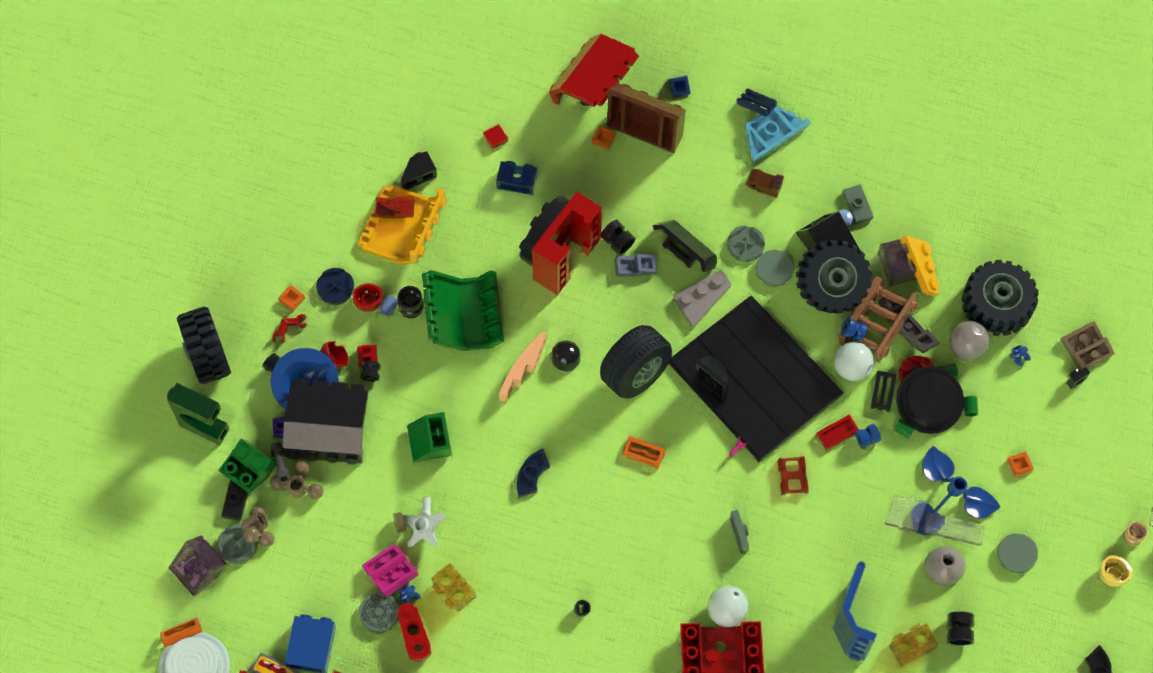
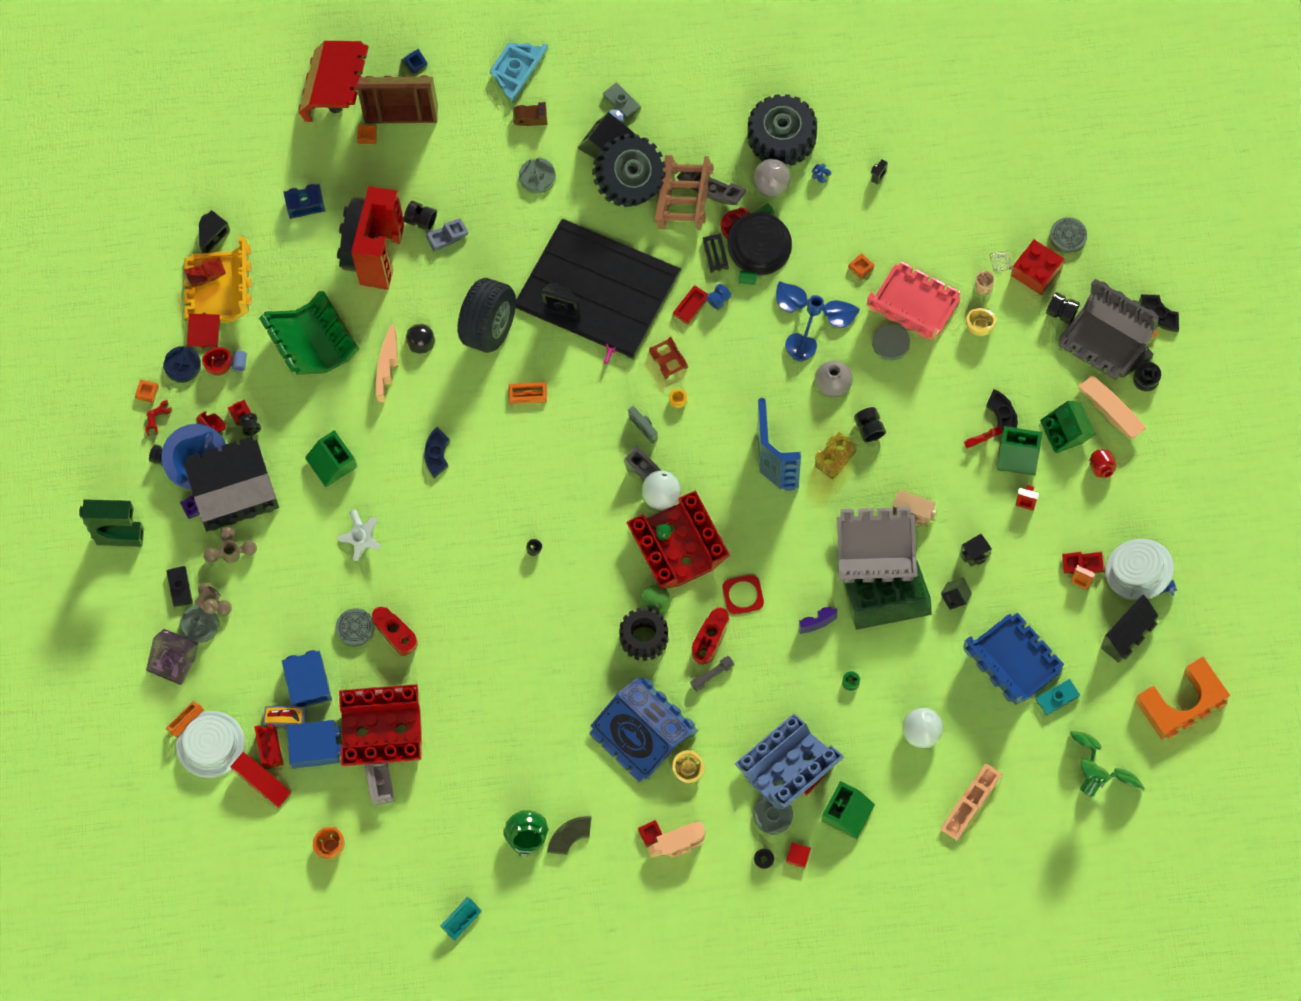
camera: 20 degrees left, 0 degrees up
(203, 345) = (88, 462): black wheel -> none
(247, 466) = (177, 551): green slope -> none
(282, 473) = (197, 528): dark grey bar -> none
(369, 262) = (203, 330): none -> red piece
(390, 570) = (348, 587): dark pink slope -> none
(399, 522) = (337, 543): olive tile -> none
(406, 592) = (372, 599): blue plate -> none
(410, 302) = (258, 349): black wheel -> none
(457, 585) = (415, 574): clear yellow brick -> none
(495, 136) = (267, 173): red tile -> none
(690, 243) = (486, 194): piece -> none
(701, 297) = (517, 240): light grey wing -> none
(711, 649) = (663, 532): none -> green hinge
(719, 570) = (640, 463): none -> dark grey slope
(758, 100) = (492, 44): dark blue tile -> none
(774, 268) = (572, 186): sand green tile -> none
(784, 520) = (678, 398): none -> yellow tile
(853, 329) = (665, 209): blue wheel -> none
(854, 361) = (678, 237): light aqua piece -> none
(896, 262) = (681, 135): slope -> none
(905, 513) = (780, 348): clear piece -> none
(925, 269) = (697, 122): yellow wing -> none
(954, 529) = (828, 344): clear tile -> none
(971, 406) = (797, 234): green hinge -> none
(1058, 522) = (915, 301): none -> coral hinge
(1087, 346) = (875, 141): dark tan slope -> none

